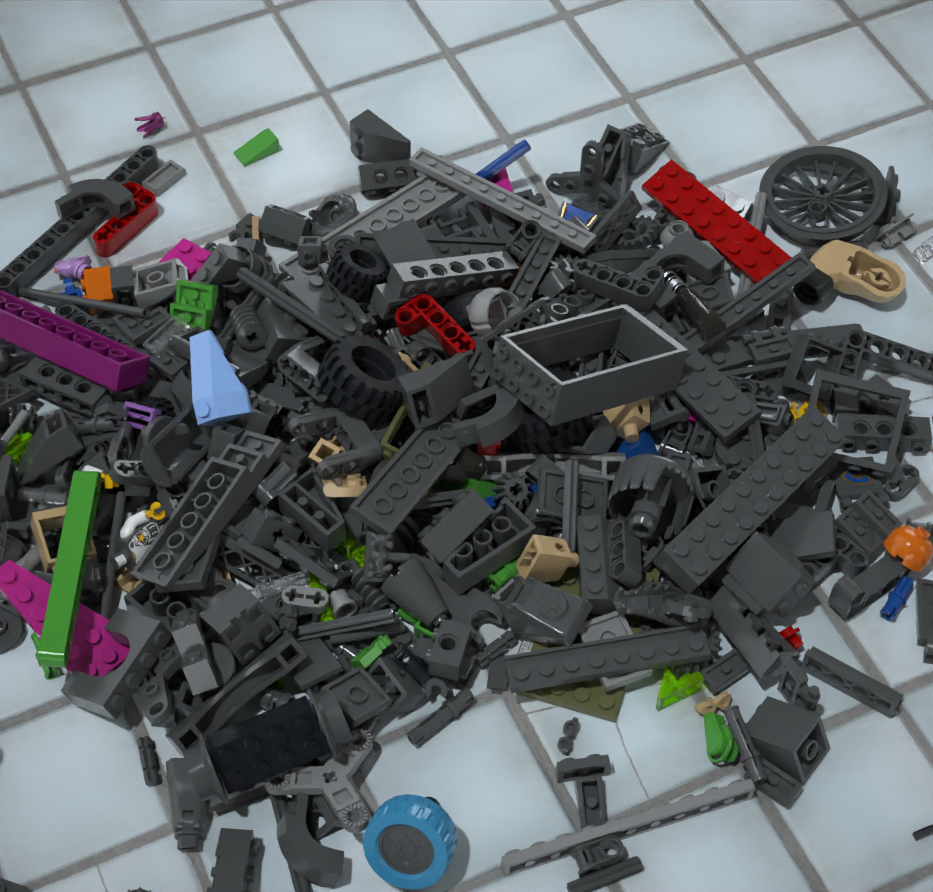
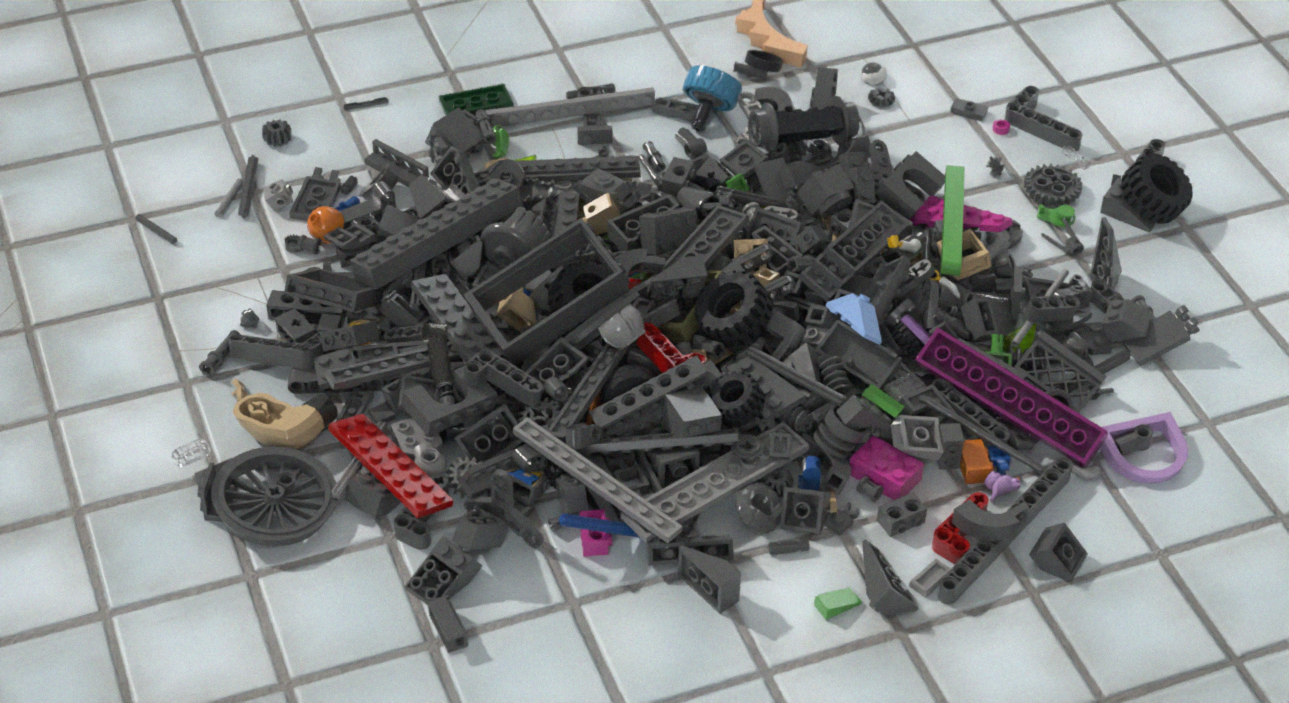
camera: 175 degrees left, 10 degrees down
(33, 200) = (1058, 552): none -> dark grey slope
(47, 405) = (997, 349): none -> bright green bracket
(156, 121) = (949, 637): flat silver piece -> none
(188, 224) = (901, 514): none -> dark grey brick
(208, 158) = (884, 585): none -> dark grey wedge
(277, 250) = (811, 474): none -> blue leg
(302, 196) = (788, 546): none -> dark grey axle
(434, 760) = (692, 145): none -> dark grey piece
(471, 845) = (674, 108): none -> dark grey hinge
(489, 734) = (654, 156): none -> dark grey pin
(491, 710) = (649, 169): none -> dark grey bar
(619, 102) = (447, 624): none -> dark grey window
(778, 841) = (477, 99): none -> dark green tile
(809, 318) = (335, 360): none -> dark grey plate
(867, 641) = (384, 175): none -> dark grey piece
(907, 646) = (348, 185): none -> dark grey piece
(916, 331) = (241, 393): none -> tan piece

